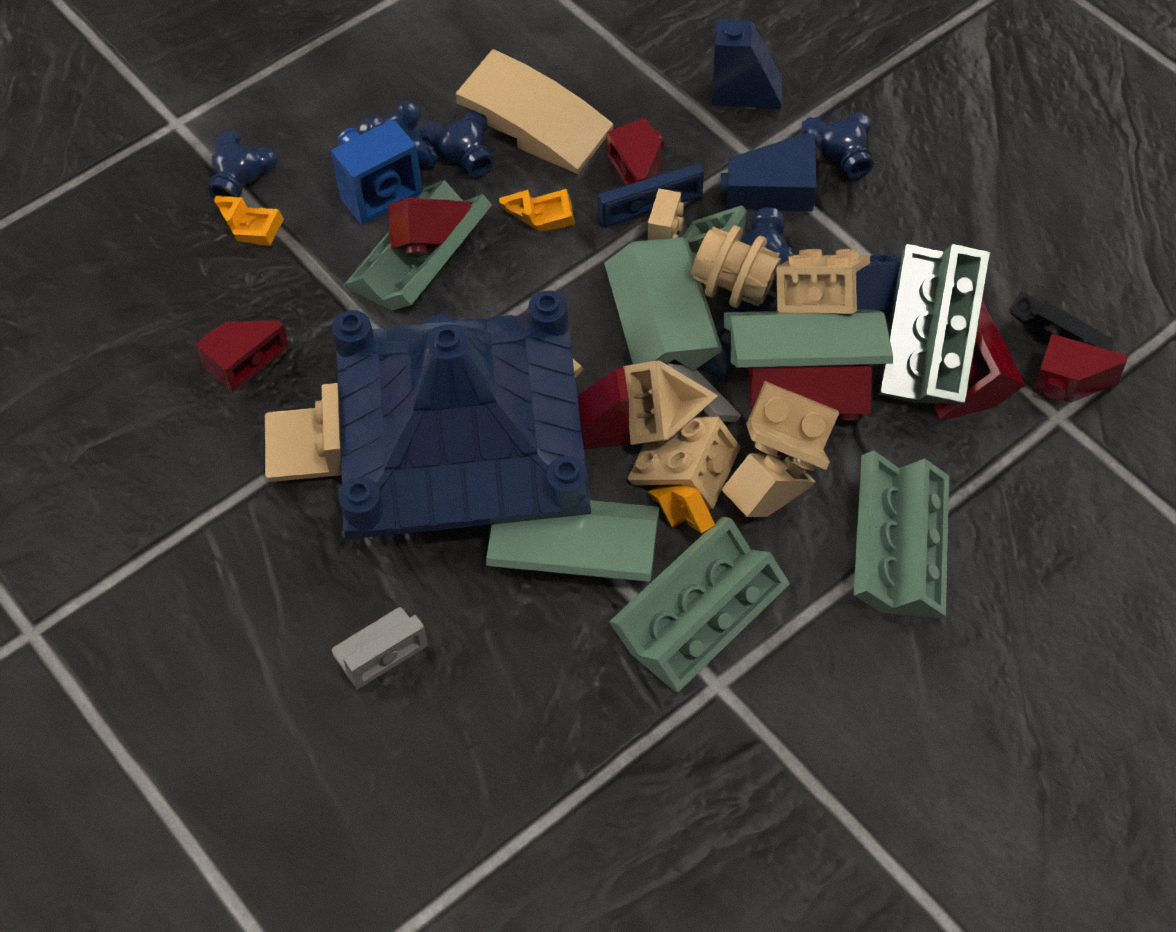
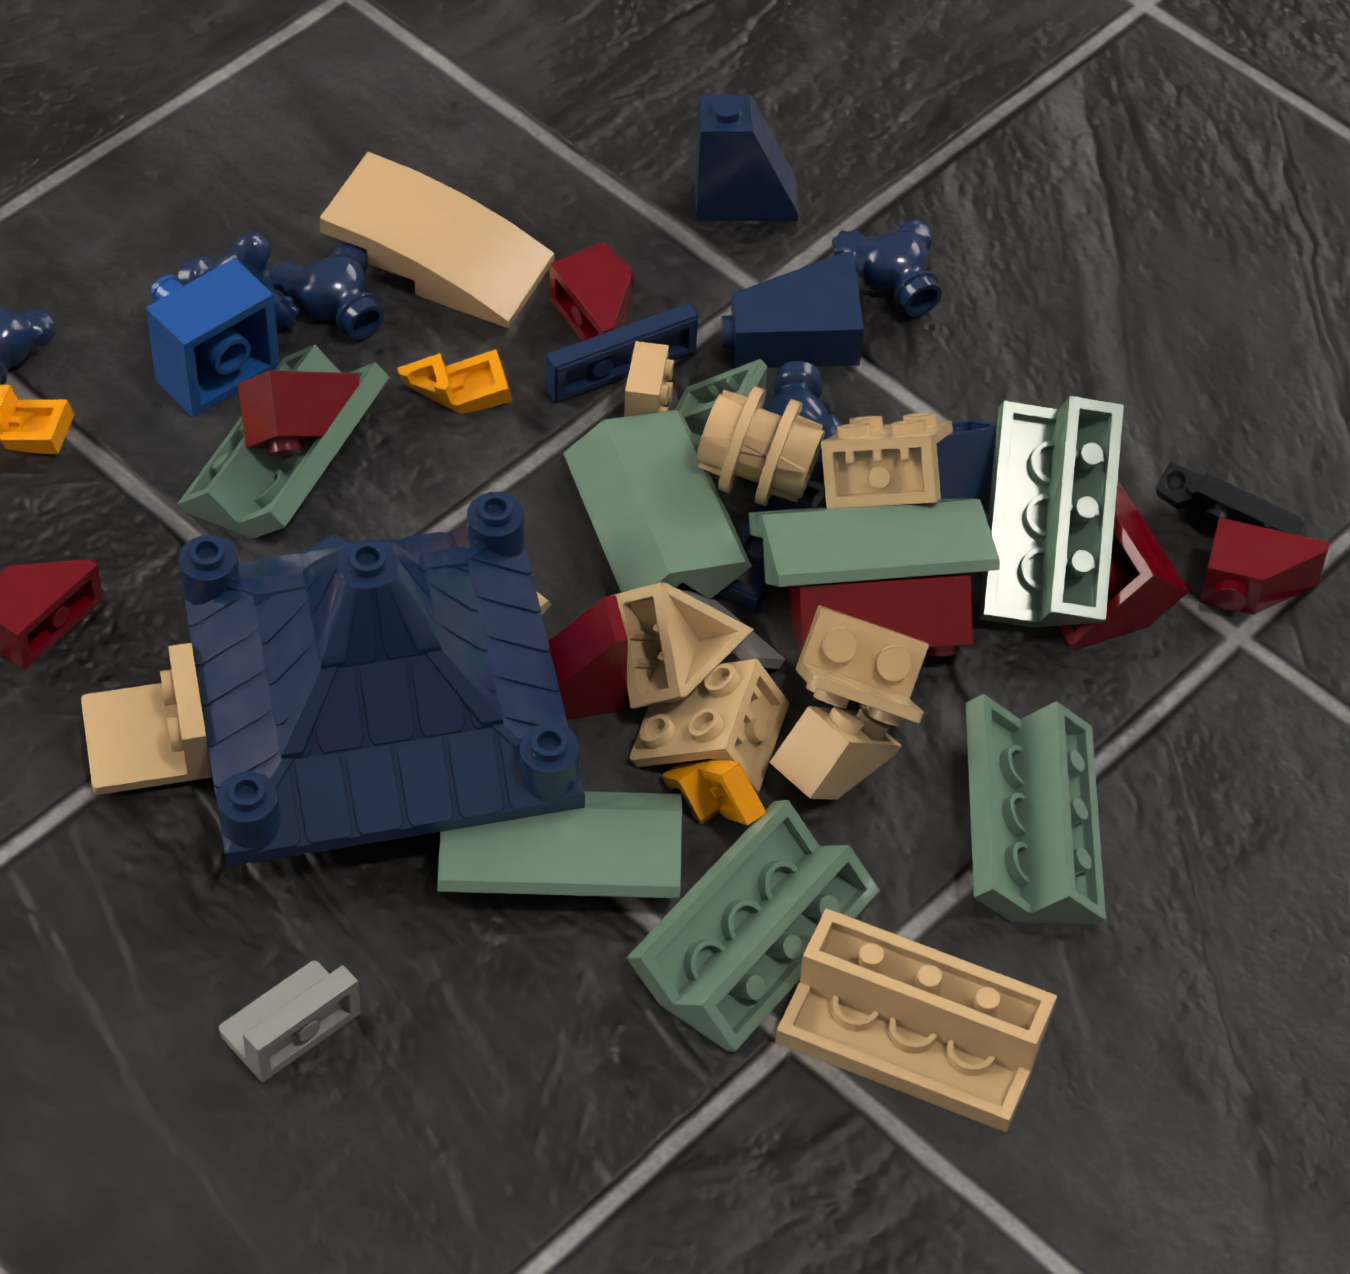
camera: 10 degrees left, 5 degrees down
(805, 680) = (916, 1019): none -> tan slope

